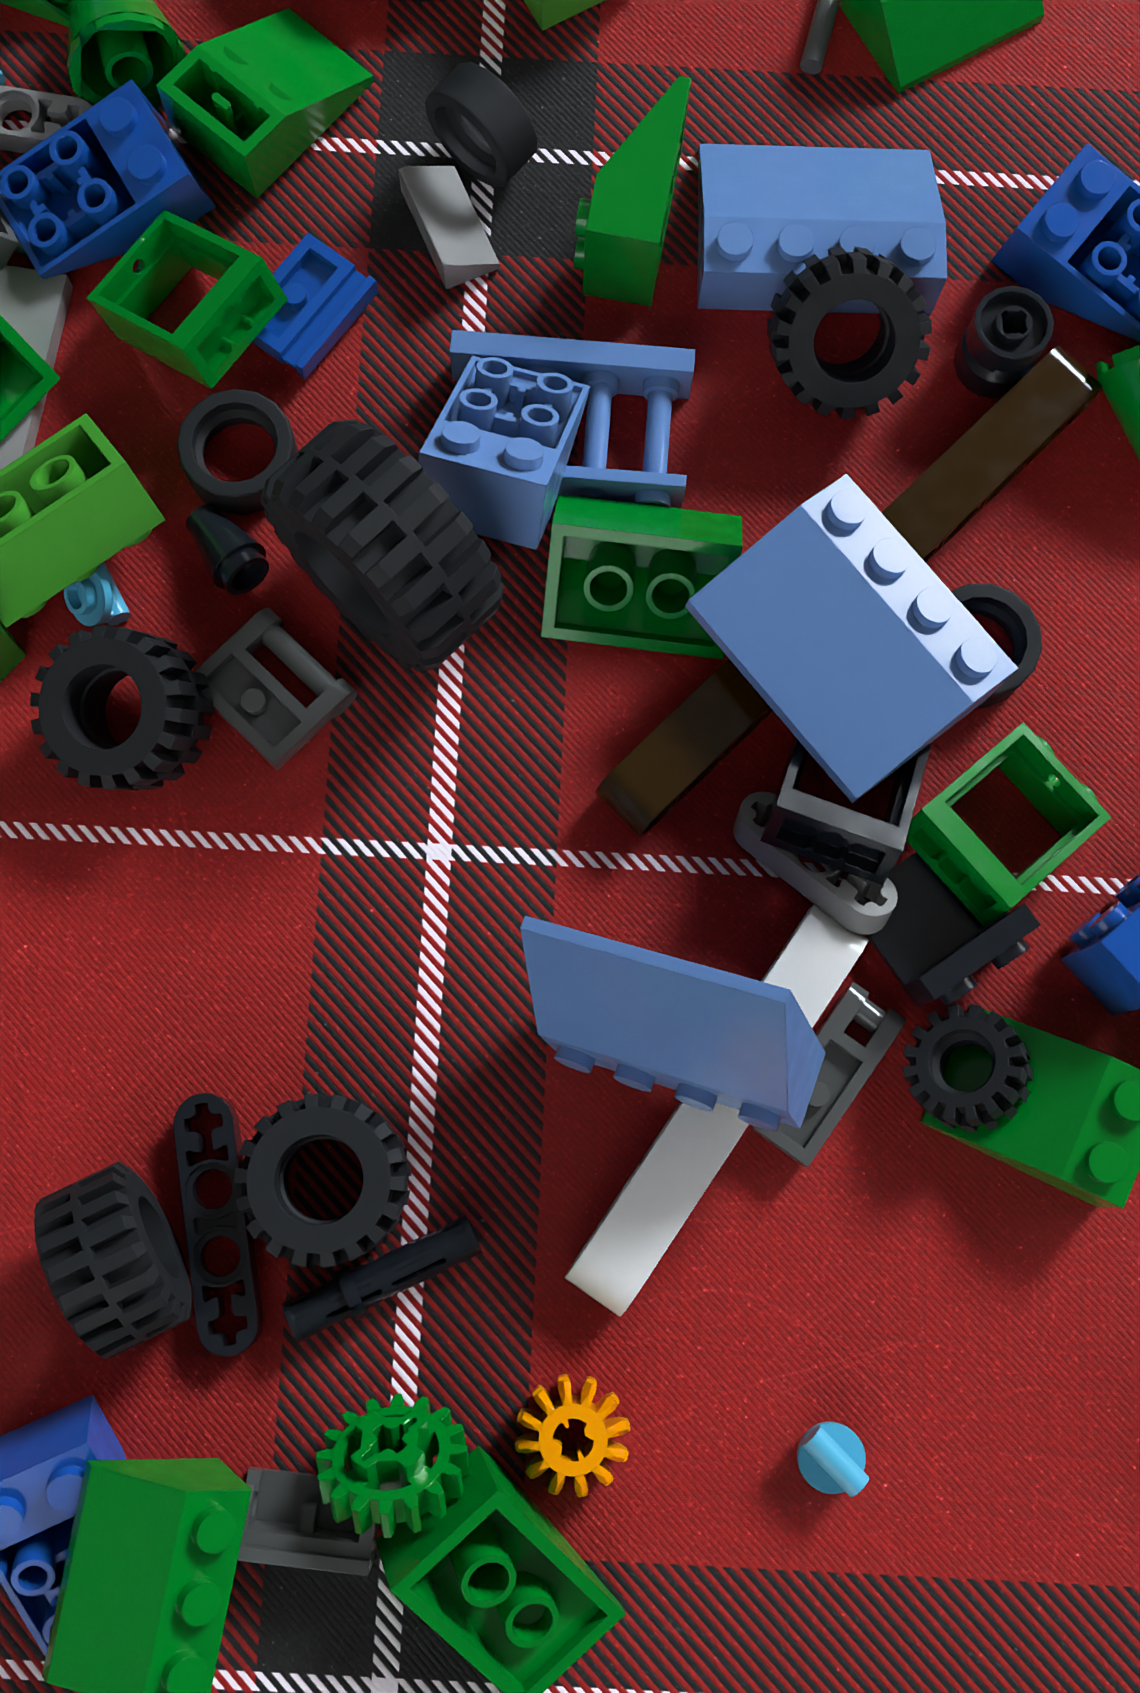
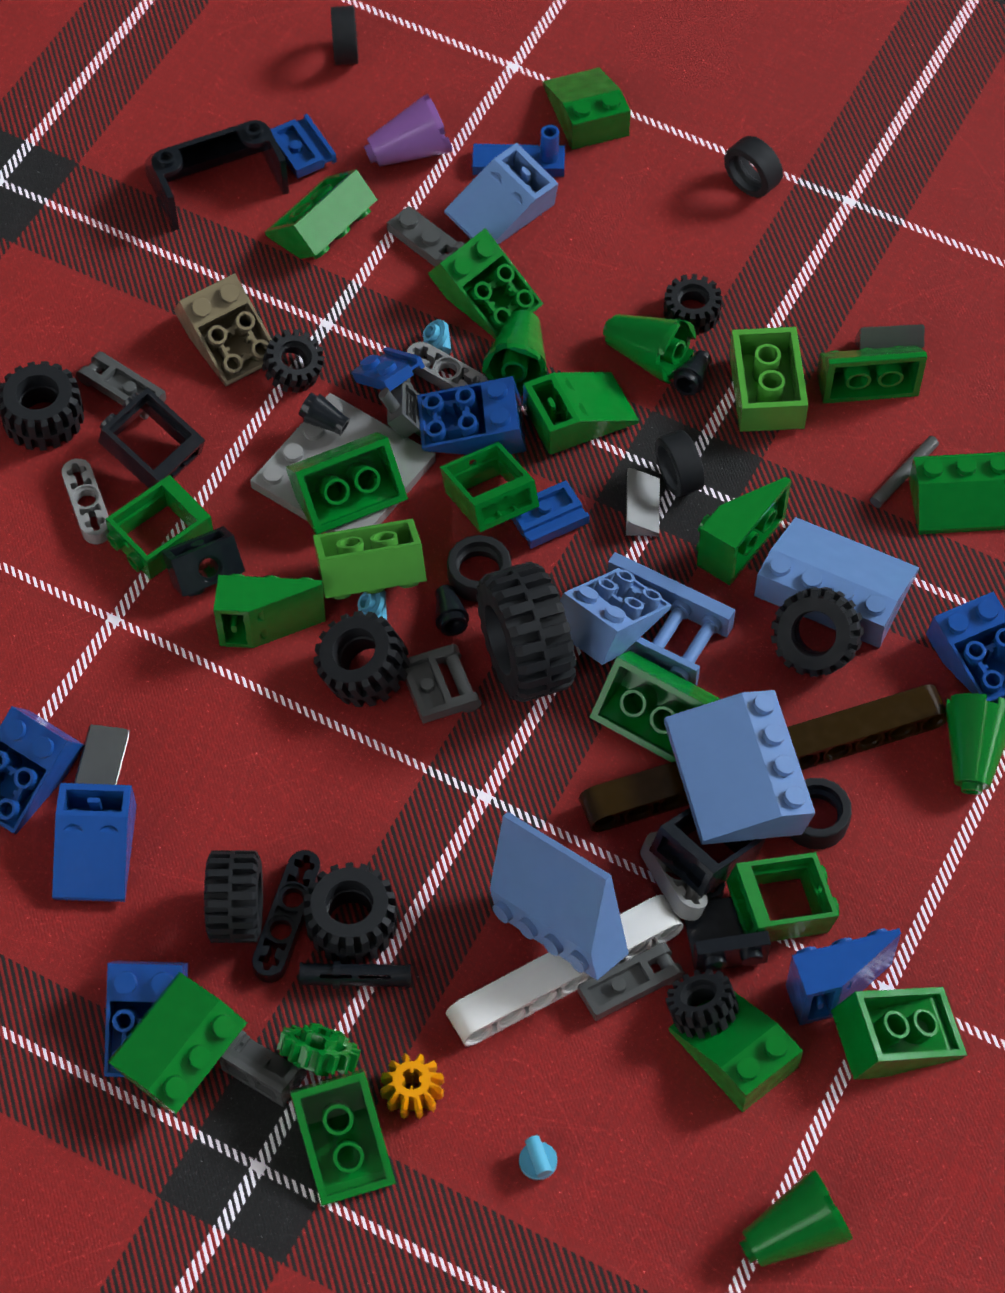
camera: 30 degrees right, 20 degrees down
(1003, 340) = (903, 668): black wheel -> none

